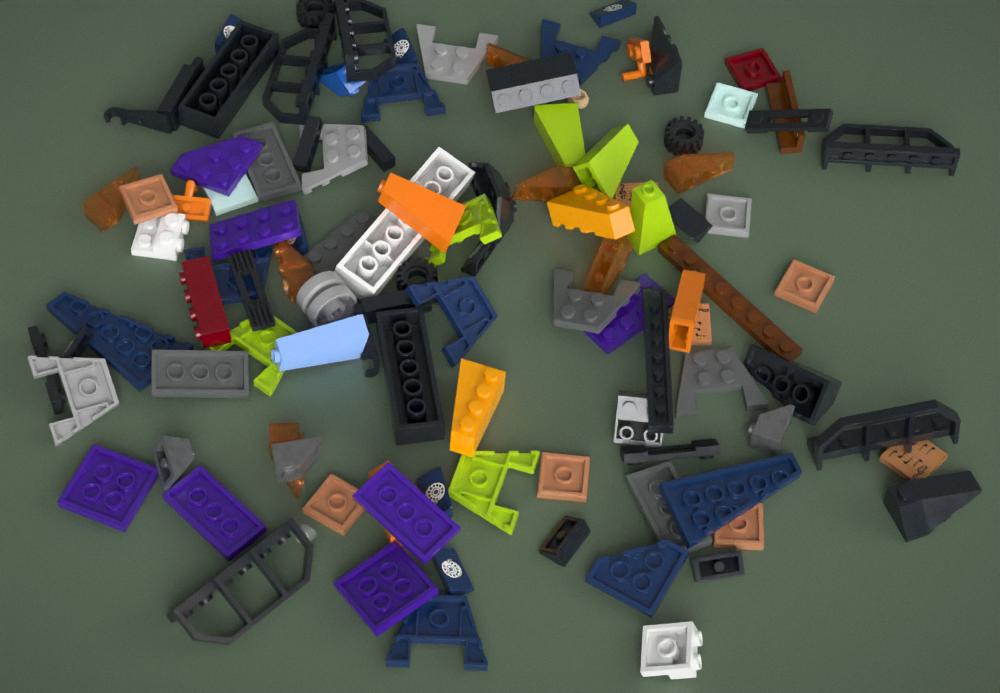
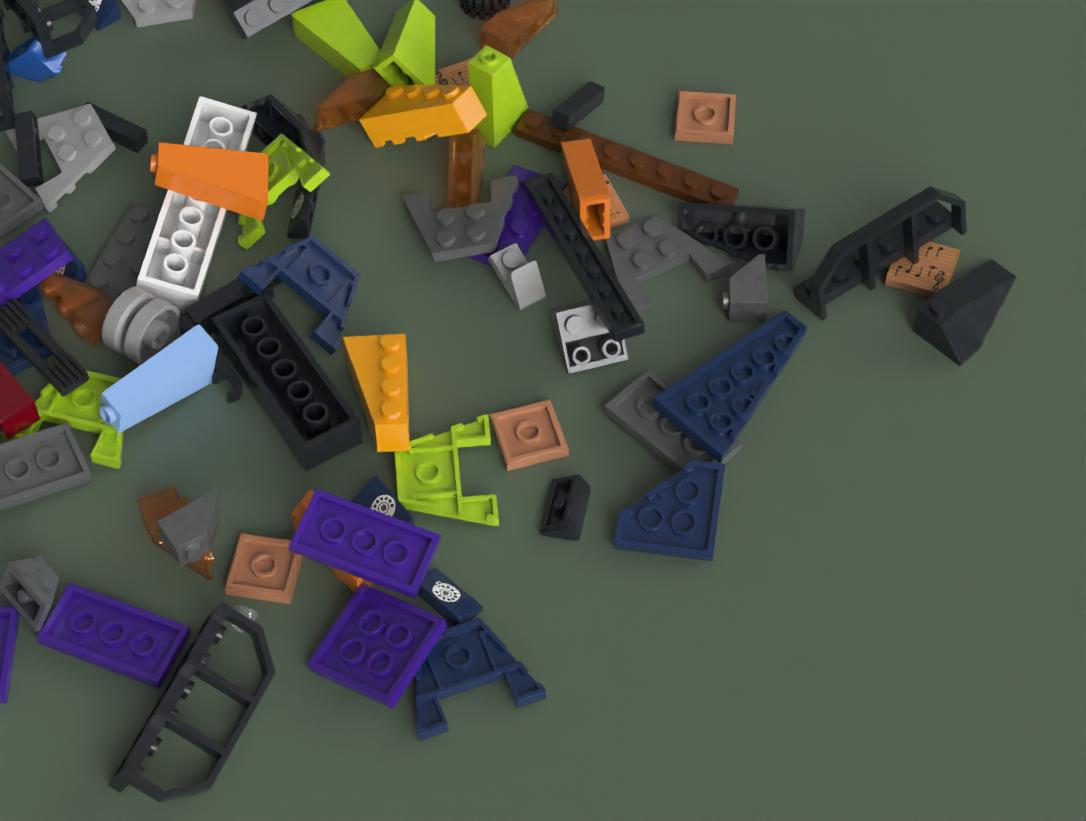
camera: 20 degrees left, 0 degrees up
(399, 84) = (111, 43): dark blue wing -> none
(415, 268) = (234, 252): black tyre -> none
(608, 358) = (518, 276): none -> light grey slope
(671, 650) = (755, 589): white plate -> none
(689, 220) = (540, 86): black slope -> none
(698, 448) = (677, 342): black container -> none
(711, 245) = (577, 106): none -> black piece
(717, 566) = (759, 471): black slope -> none
(728, 215) = (576, 65): light grey tile -> none
(743, 532) = (771, 422): nougat tile -> none

